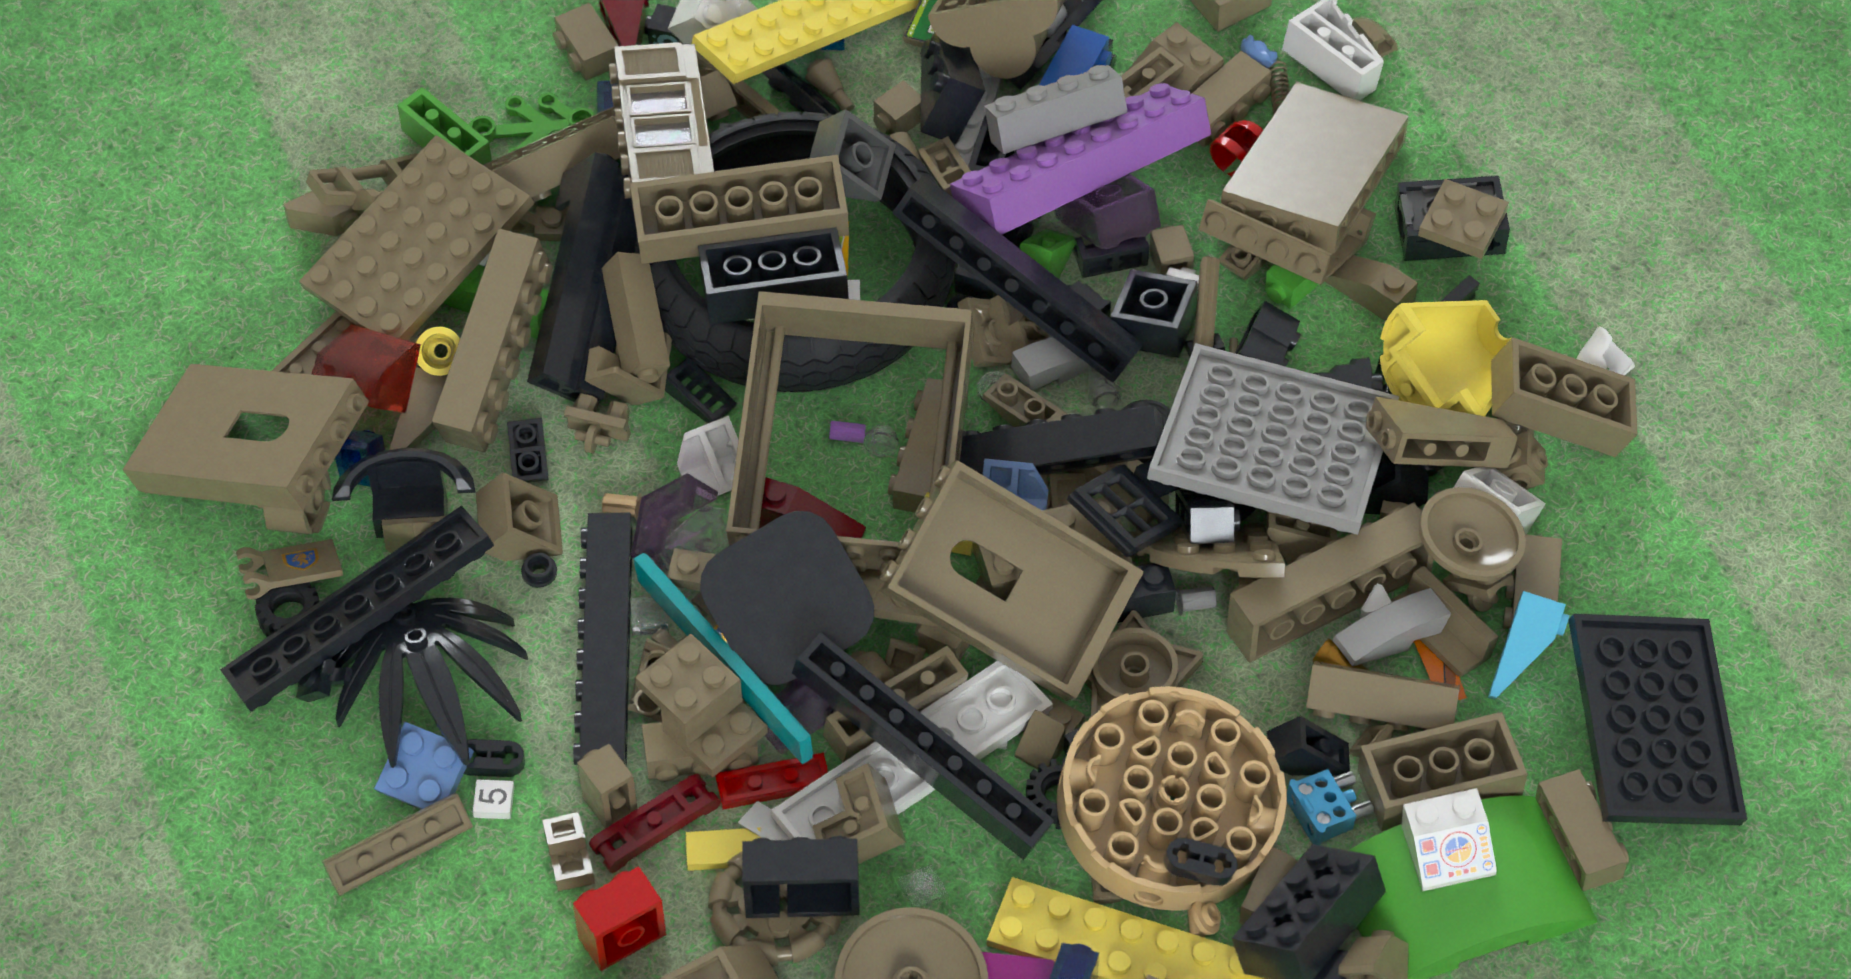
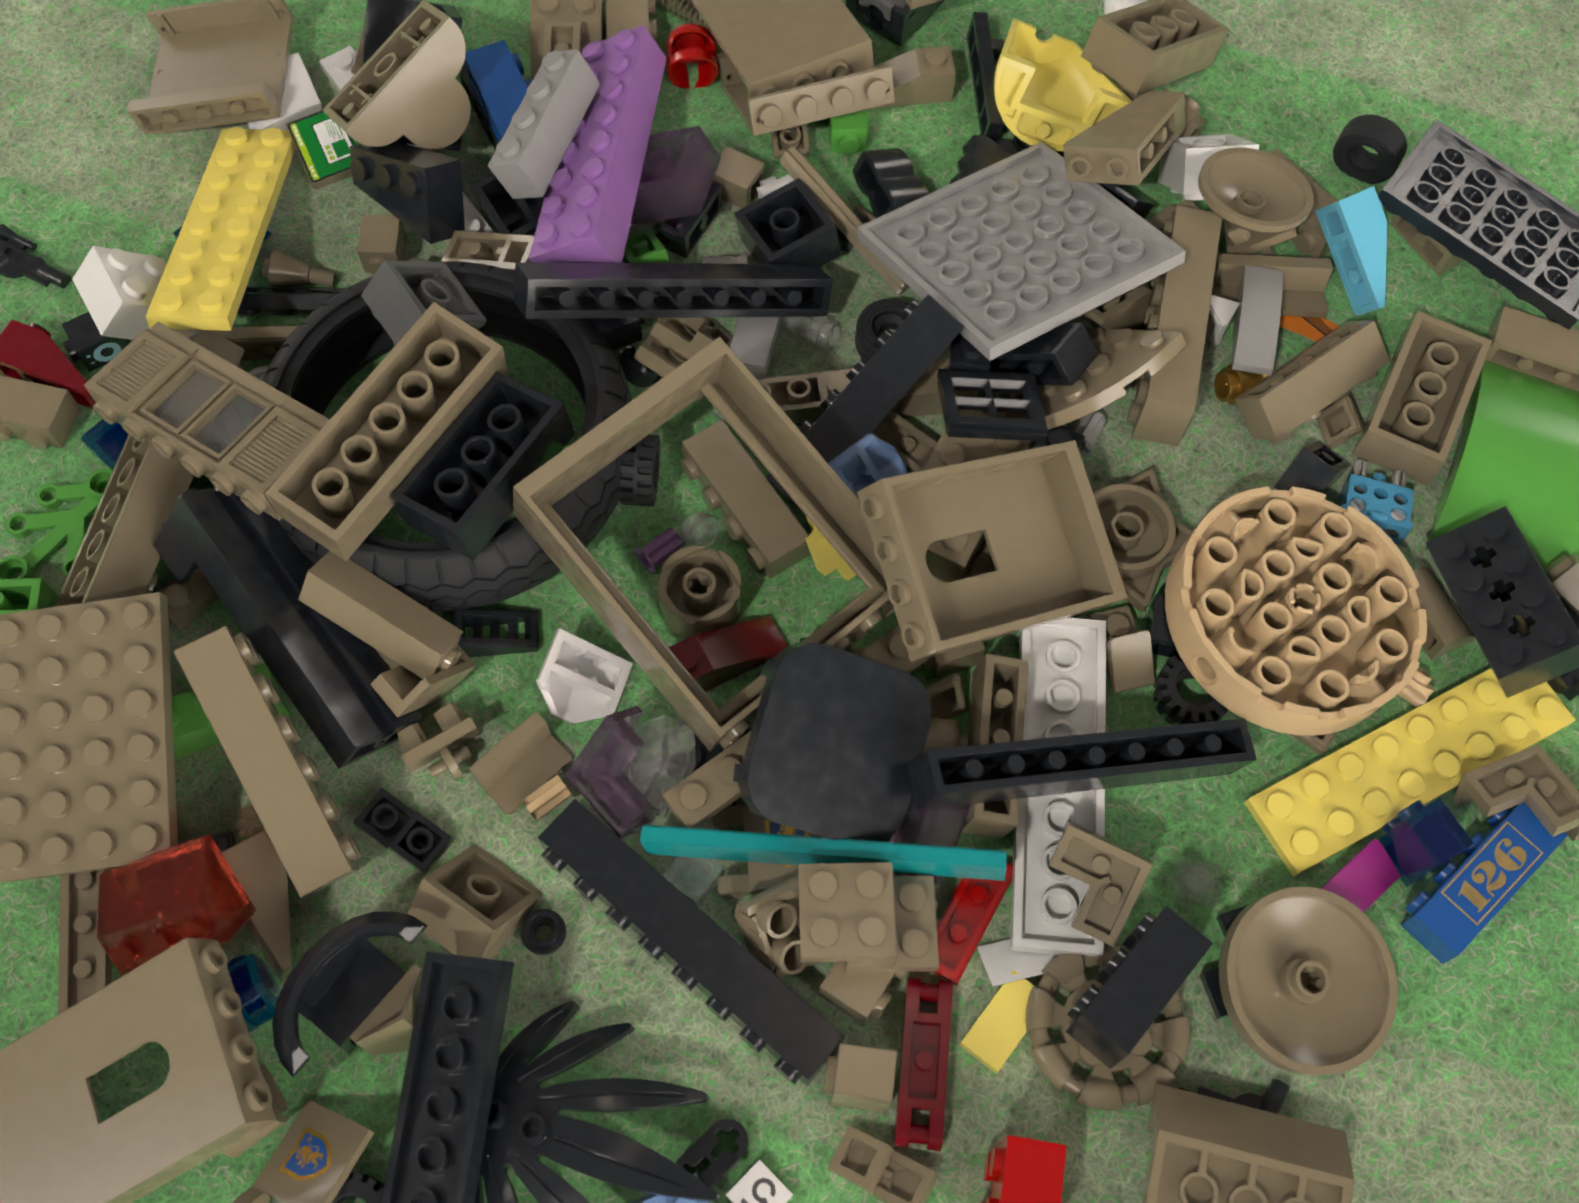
camera: 50 degrees left, 10 degrees up
(429, 340) = (238, 825): light yellow plant -> none
(627, 470) = (520, 763): none -> dark tan panel
(835, 470) = (703, 572): none -> dark tan brick
(884, 373) = (640, 473): none -> black tyre
(1200, 861) = (1404, 645): black beam -> none
(1449, 839) = (1521, 441): white slope -> none
(1634, 592) = (1377, 134): none -> black tyre

